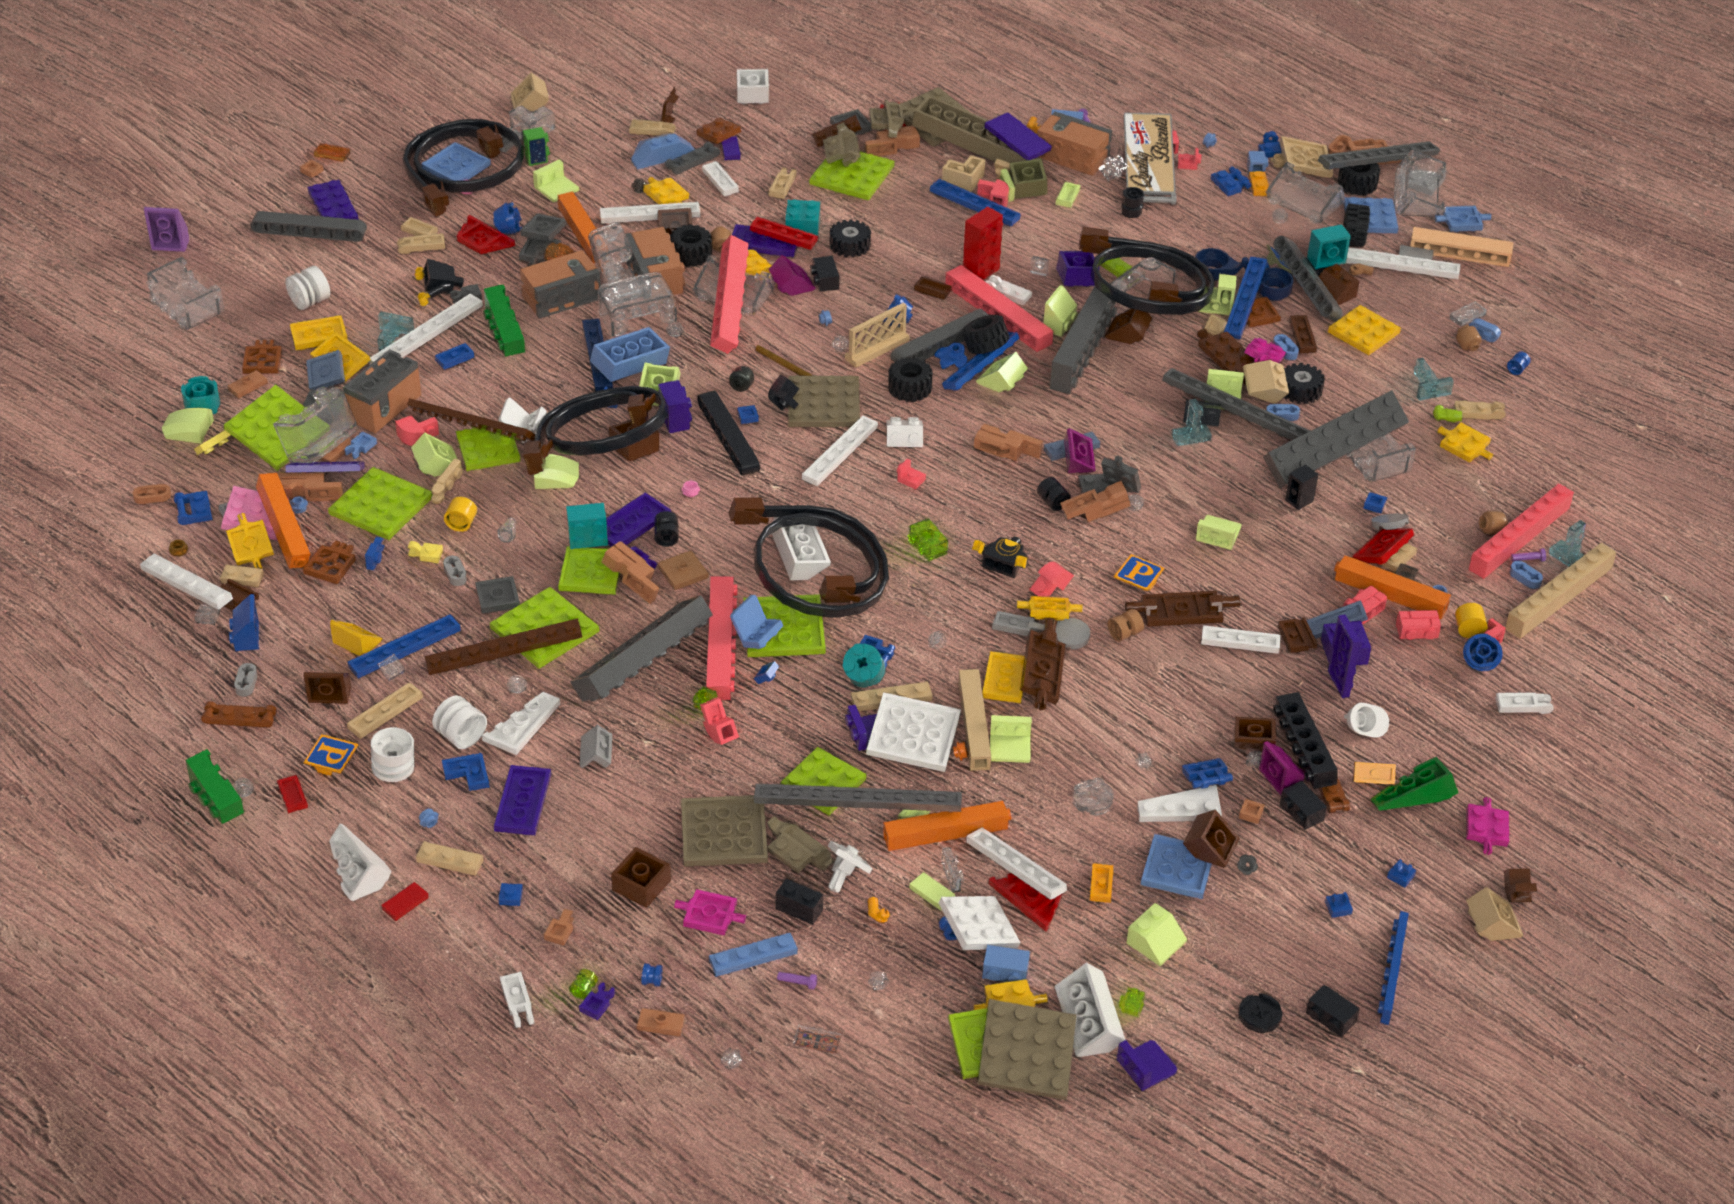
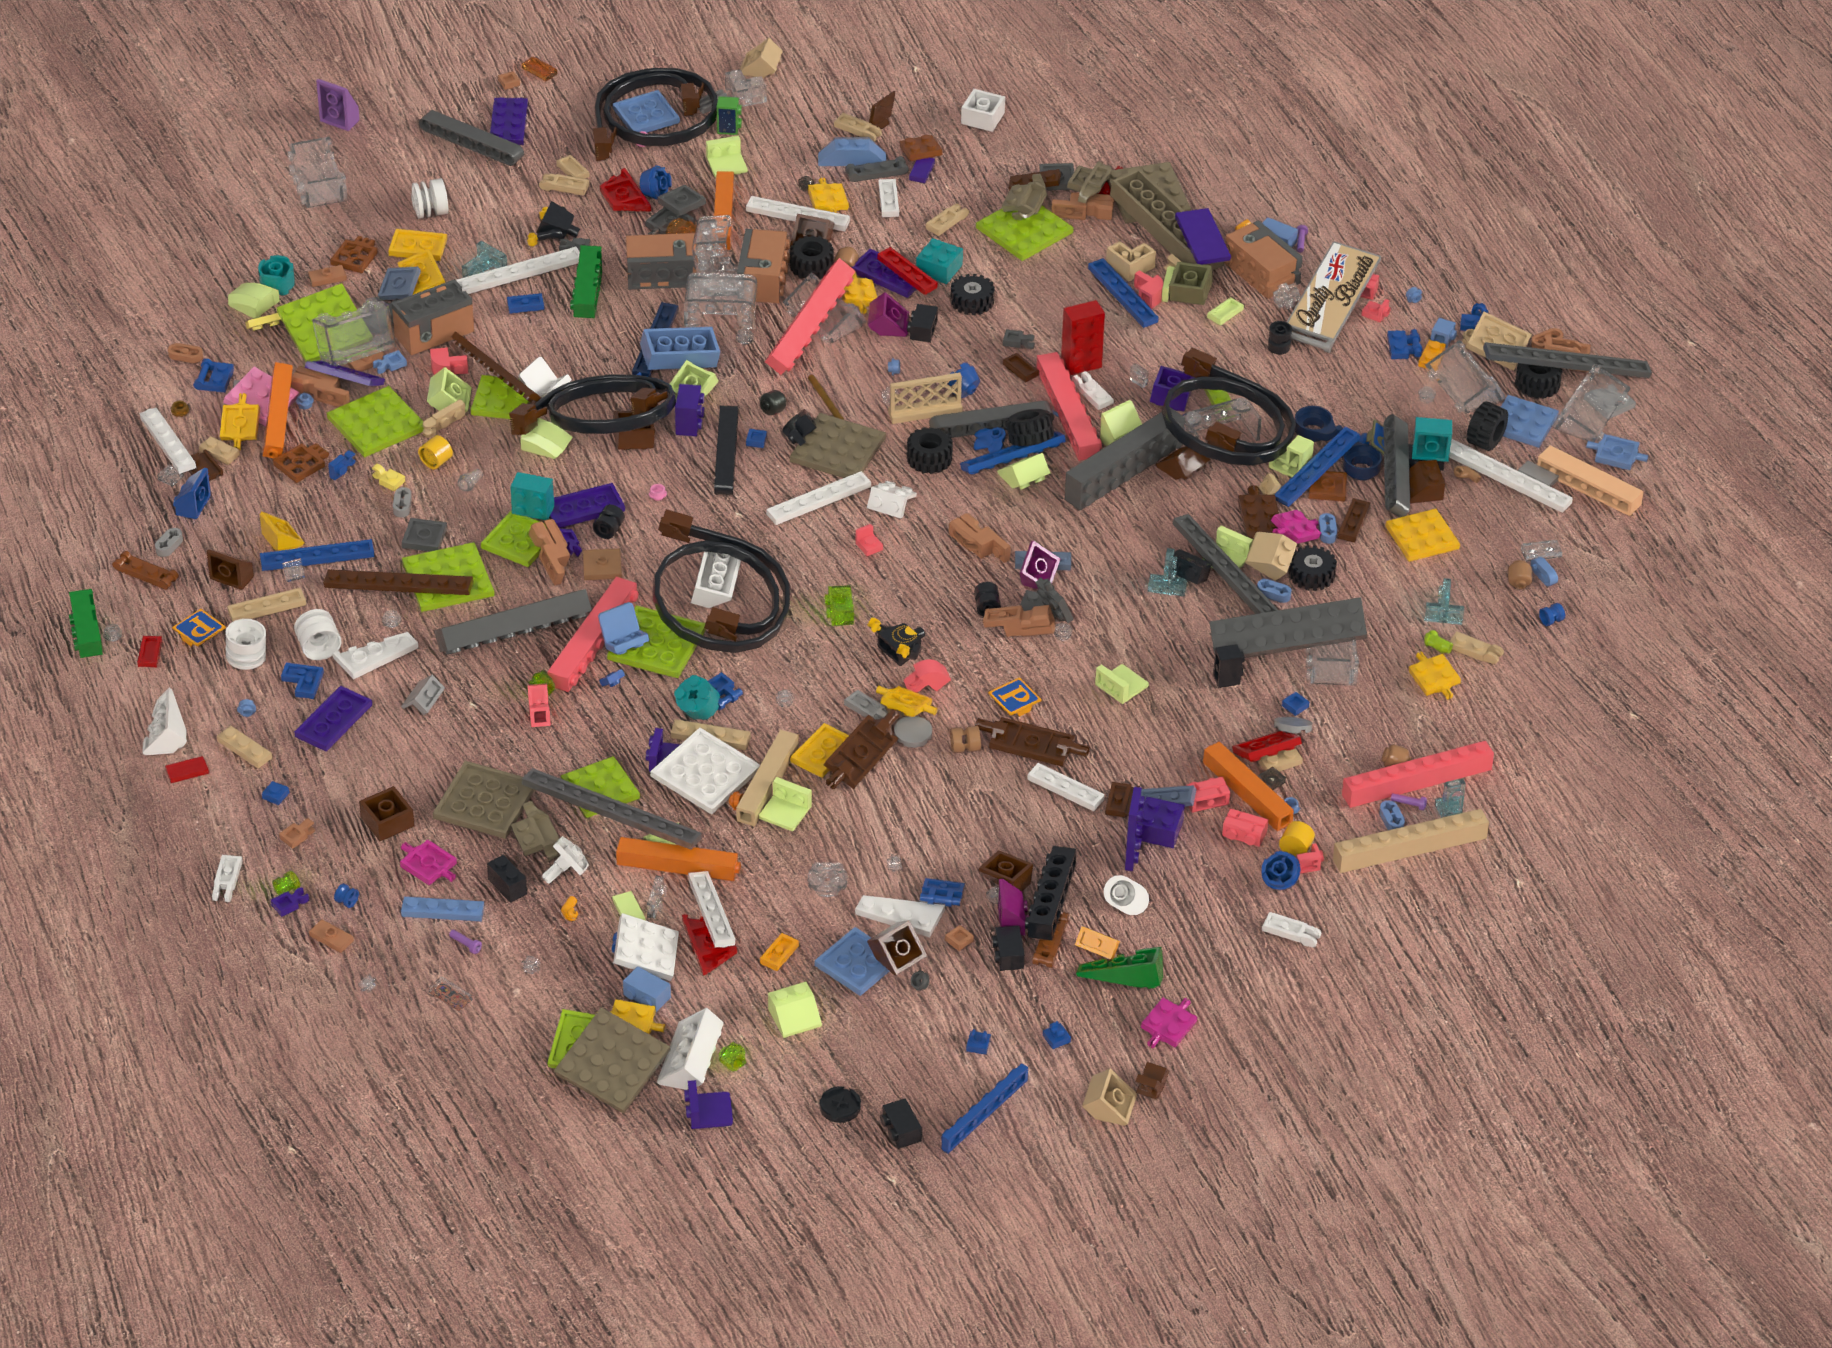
camera: 25 degrees right, 0 degrees up
(914, 265) = (1017, 338): none -> dark grey plate

